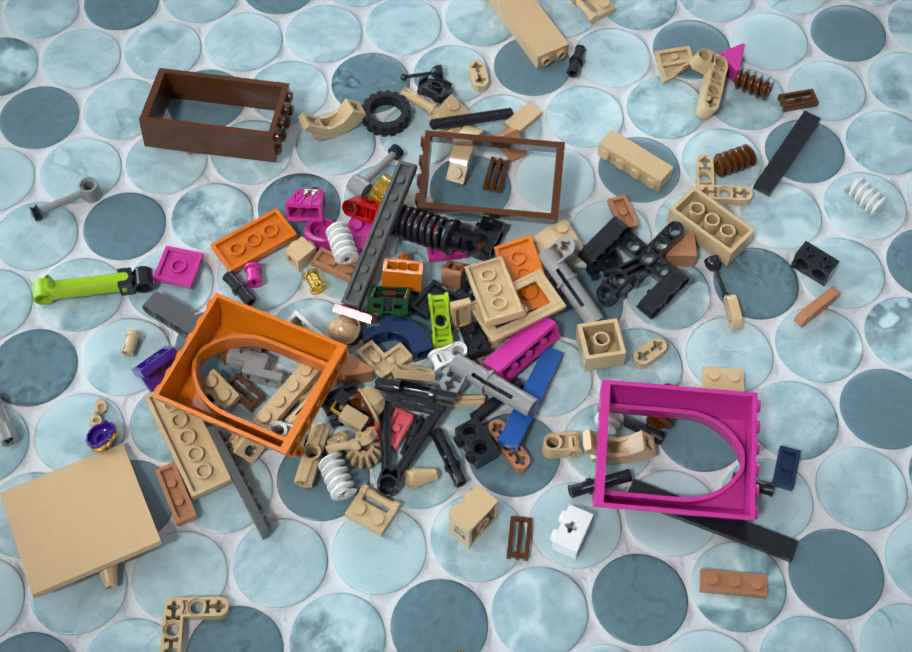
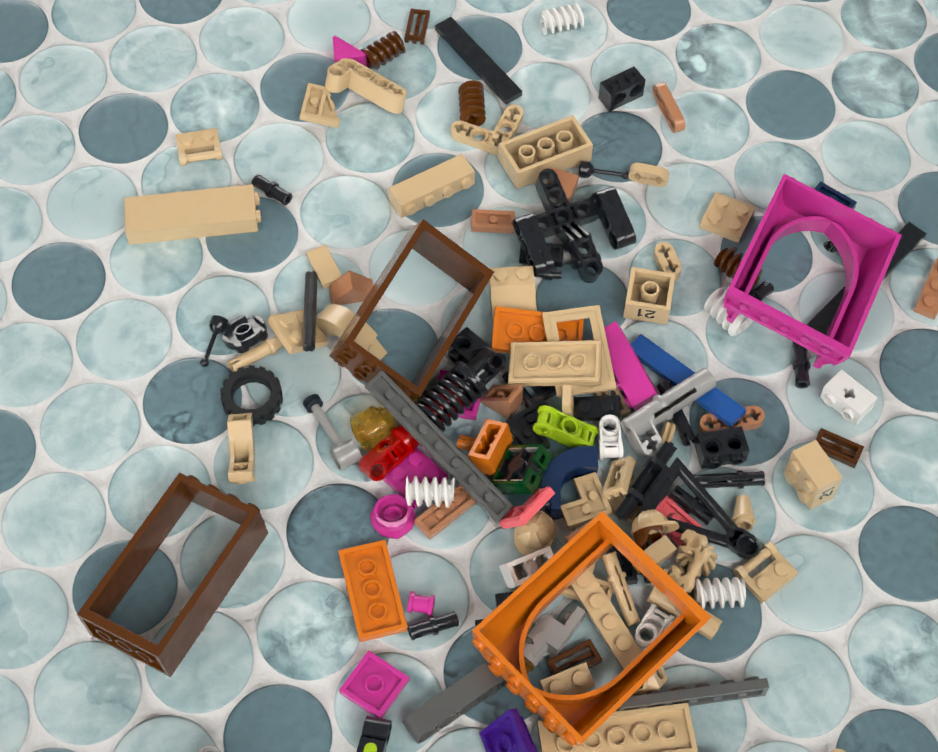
camera: 70 degrees left, 0 degrees up
(300, 253) = (413, 544): tan brick -> none
(306, 205) = (353, 512): dark pink torso -> none
(314, 281) = (457, 541): clear yellow bush -> none
(482, 74) = (242, 288): tan beam -> none
(499, 163) = (391, 315): reddish brown tile -> none
(555, 264) = (544, 295): light grey piece -> none
(565, 445) = (749, 370): tan piece -> none
(622, 449) = (766, 338): tan arch -> none

